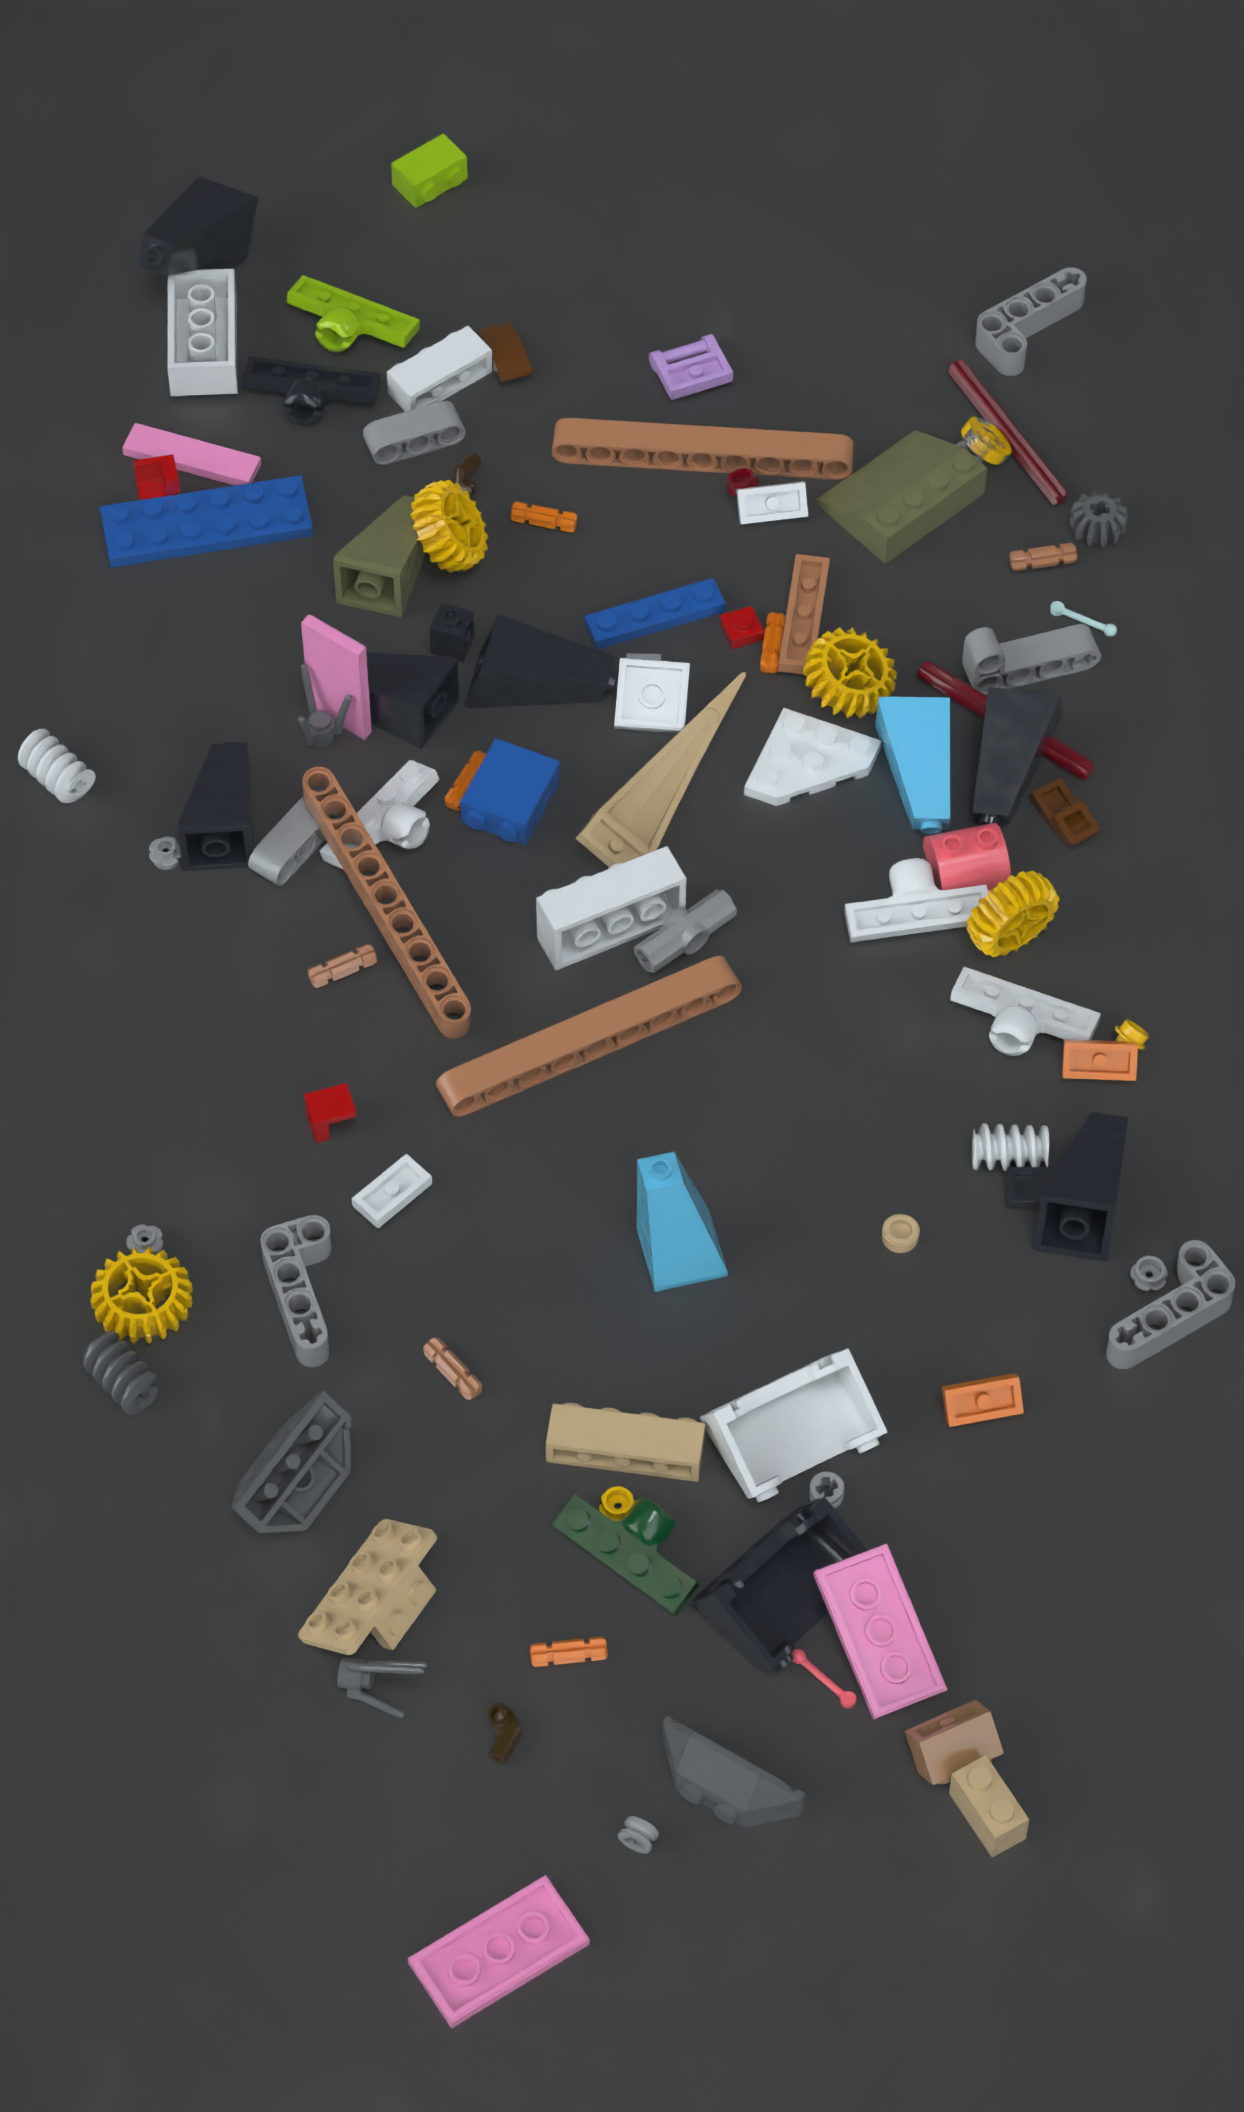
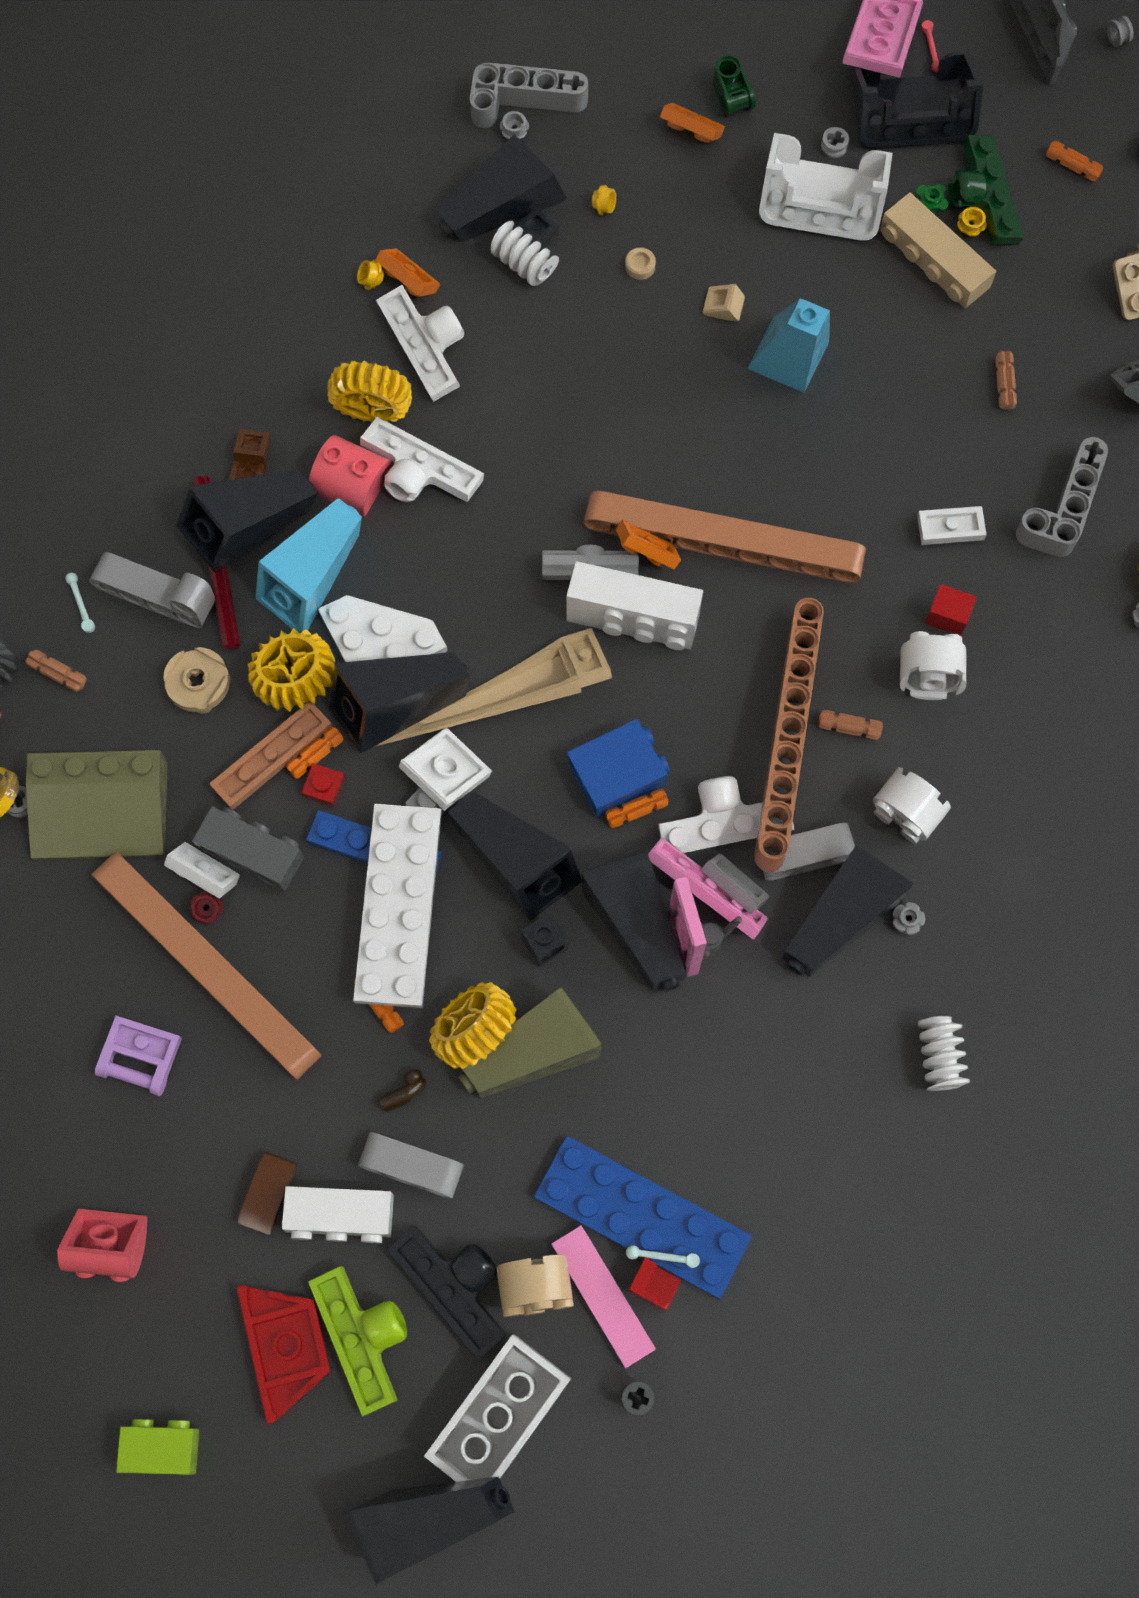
camera: 140 degrees left, 15 degrees up
(109, 403) = (648, 1394): none -> dark grey bush
(141, 507) = (691, 1260): none -> light aqua hinge
(232, 919) = (911, 805): none -> white brick
(247, 412) = (534, 1285): none -> tan brick
(305, 1041) = (933, 665): none -> white brick
(349, 772) = (735, 883): none -> light grey tile
(353, 750) = (679, 865): none -> bright pink tile
(402, 279) = (284, 1347): none -> red wing
(589, 241) = (103, 1244): none -> coral brick
(591, 575) = (398, 906): none -> white plate
(647, 964) = (653, 547): none -> orange plate
(681, 1510) = (937, 191): none -> green plate
(748, 703) = (392, 694): none -> black slope
(750, 539) = (249, 847): none -> dark grey brick
(786, 1253) = (724, 302): none -> tan slope
(922, 641) = (200, 697): none -> tan plate
(972, 1462) = (732, 90): none -> dark green piece
(991, 1262) = (604, 200): none -> yellow plate

